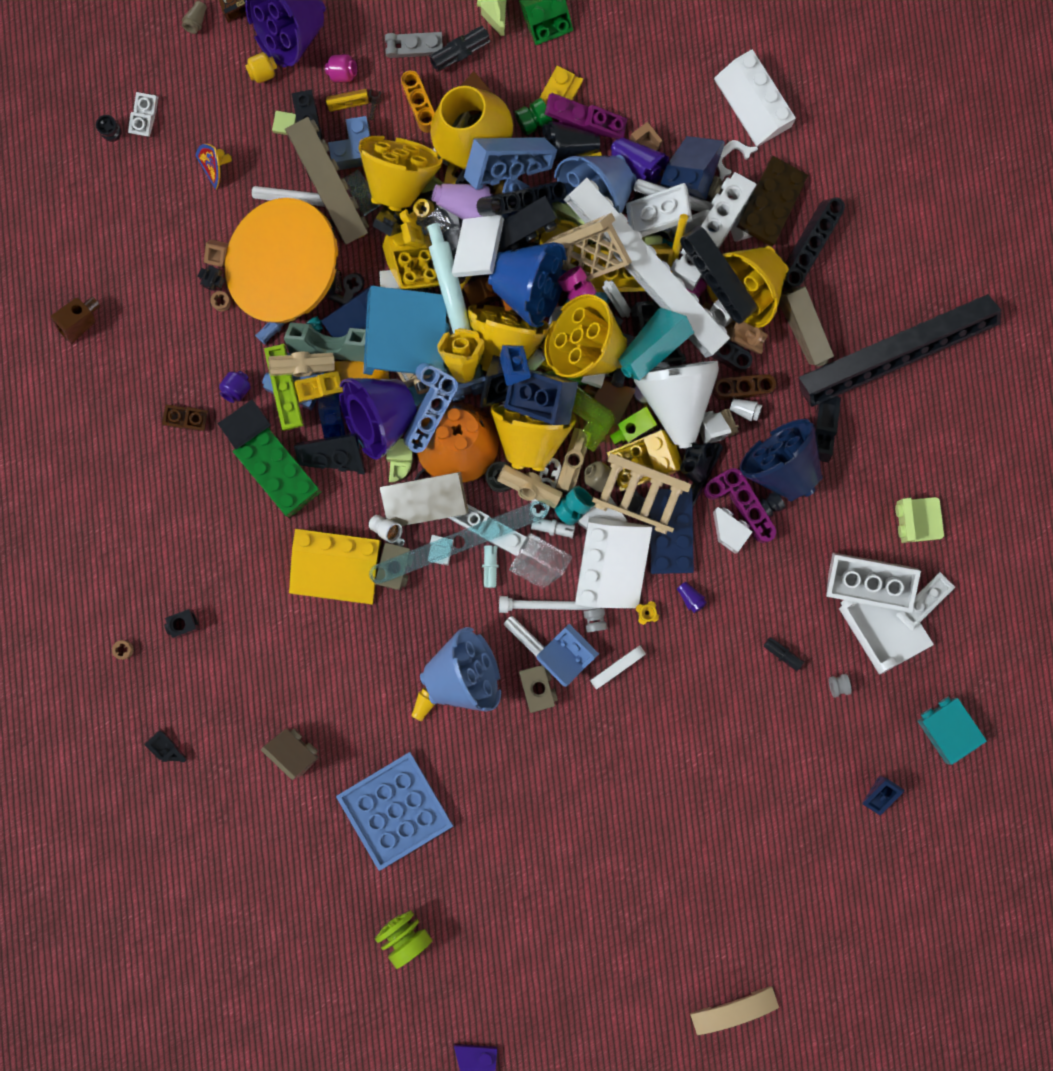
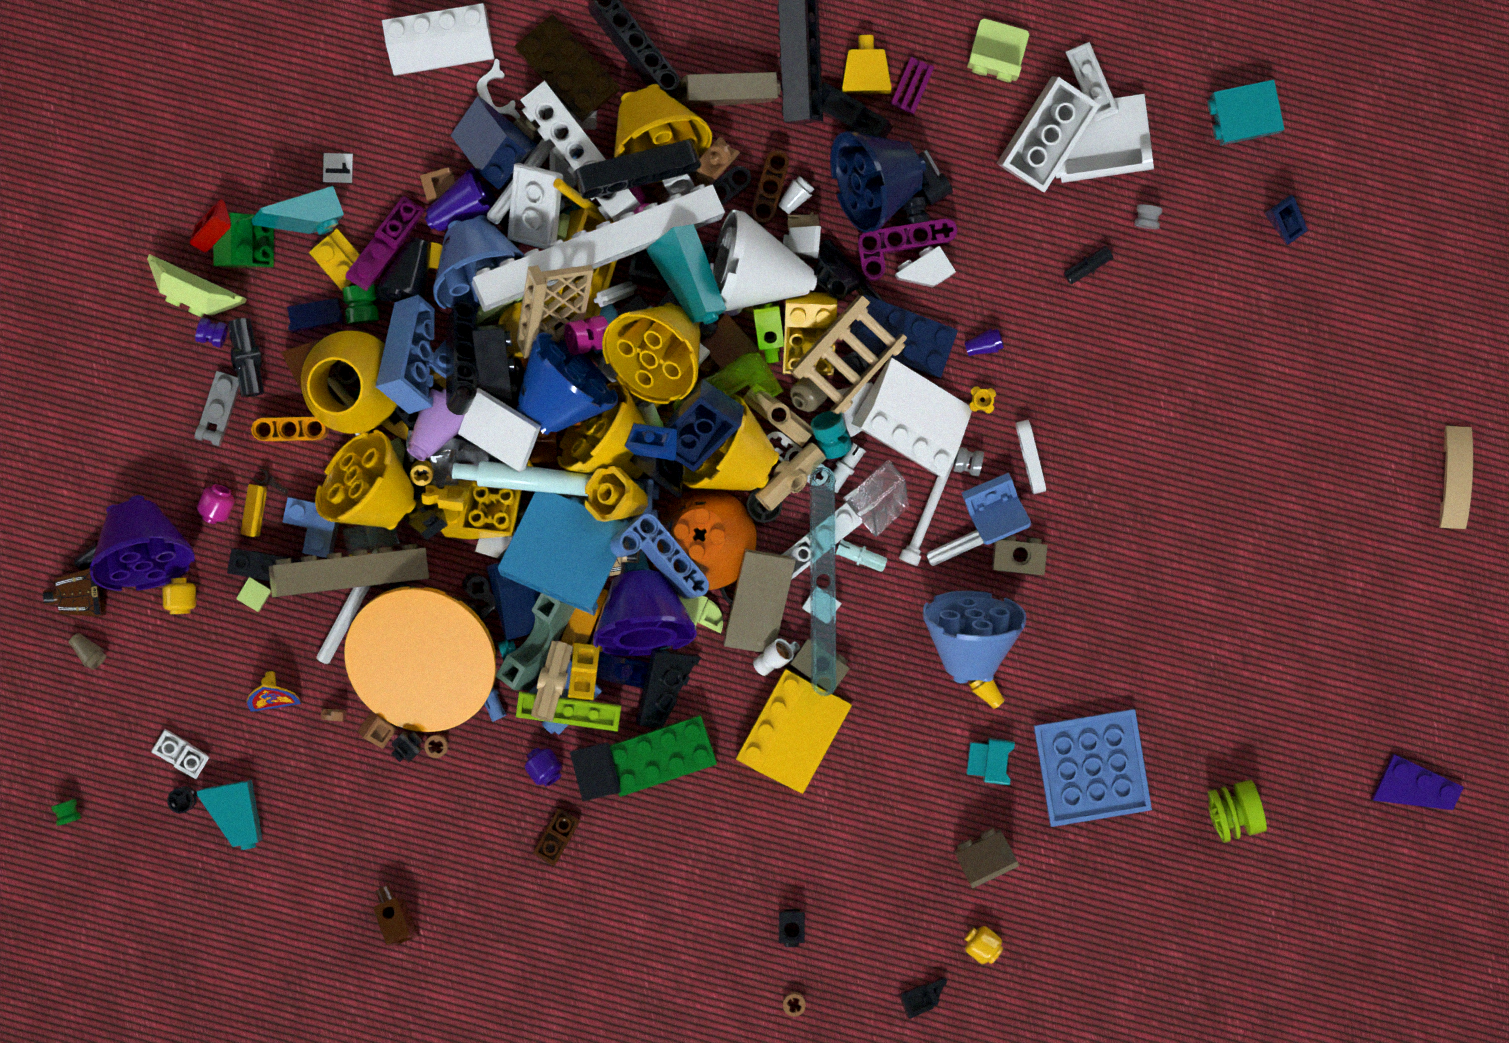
camera: 65 degrees left, 5 degrees up
(67, 47) = (66, 812): none -> green wheel
(113, 170) = (234, 812): none -> teal slope
(215, 216) = (334, 714): none -> medium nougat tile
(223, 779) = (983, 945): none -> yellow head
(369, 728) = (990, 760): none -> teal piece
(468, 17) = (214, 333): none -> dark purple wheel
(511, 88) = (314, 315): none -> clear blue panel
(584, 45) = (303, 214): none -> teal slope
(628, 64) = (337, 167): none -> white sticker
(798, 509) = (934, 184): none -> black piece
(863, 424) = (866, 69): none -> yellow torso
(882, 465) = (920, 65): none -> magenta tile

